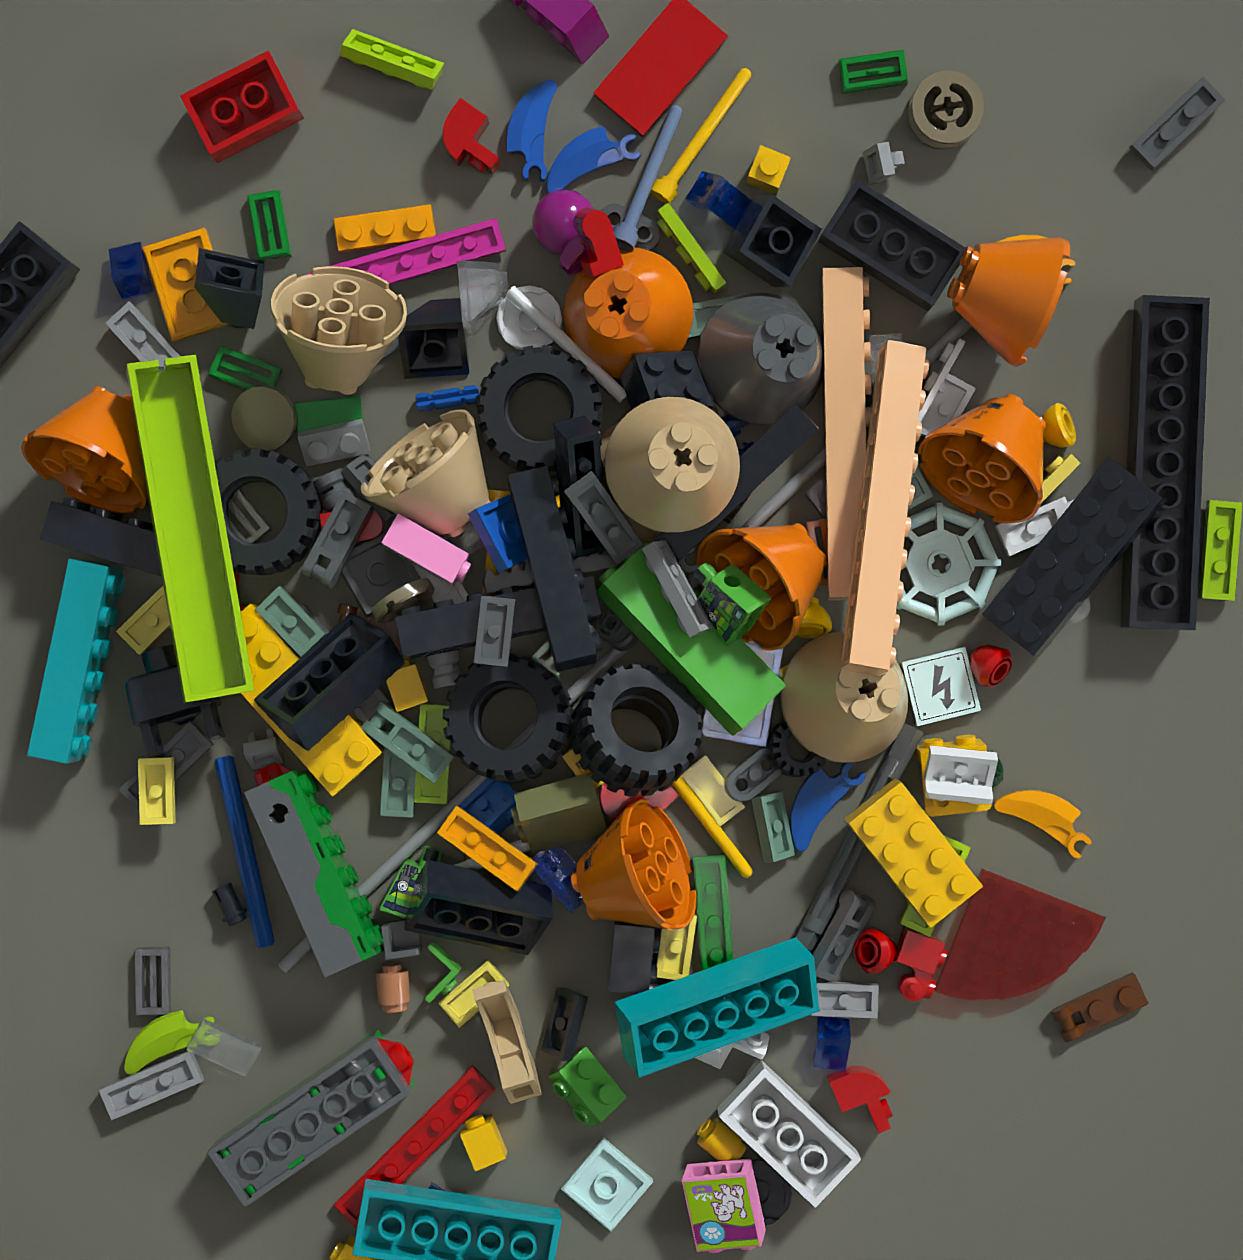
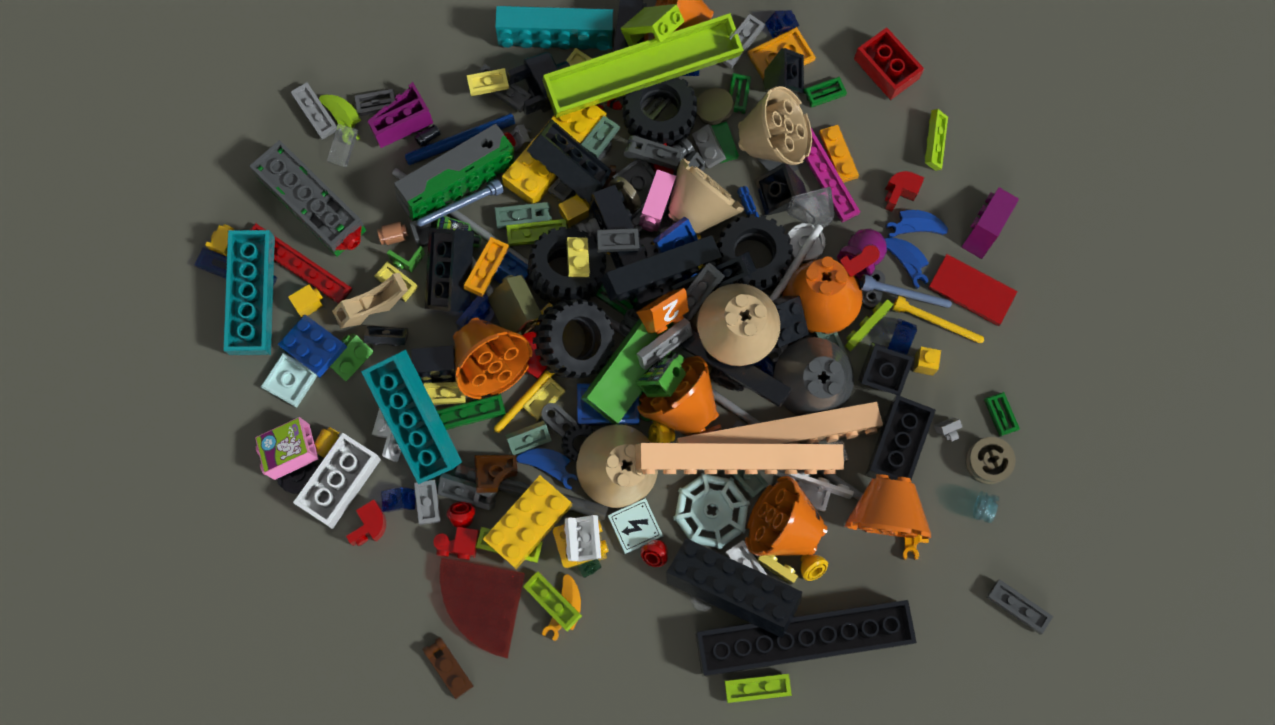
camera: 75 degrees right, 15 degrees down
(118, 497) = (656, 20): none -> lime panel
(193, 944) = (400, 118): none -> magenta wedge
(344, 812) = (493, 188): none -> sand blue piece
(408, 742) = (541, 214): sand green plate -> none
(505, 699) = (577, 257): none -> light yellow plate
(562, 1143) = (312, 345): none -> blue plate
(627, 580) = (664, 311): none -> orange slope
(816, 892) = (492, 470): none -> reddish brown tile
(1018, 136) = (985, 507): none -> clear light blue wheel
(1035, 835) = (552, 601): none -> lime plate

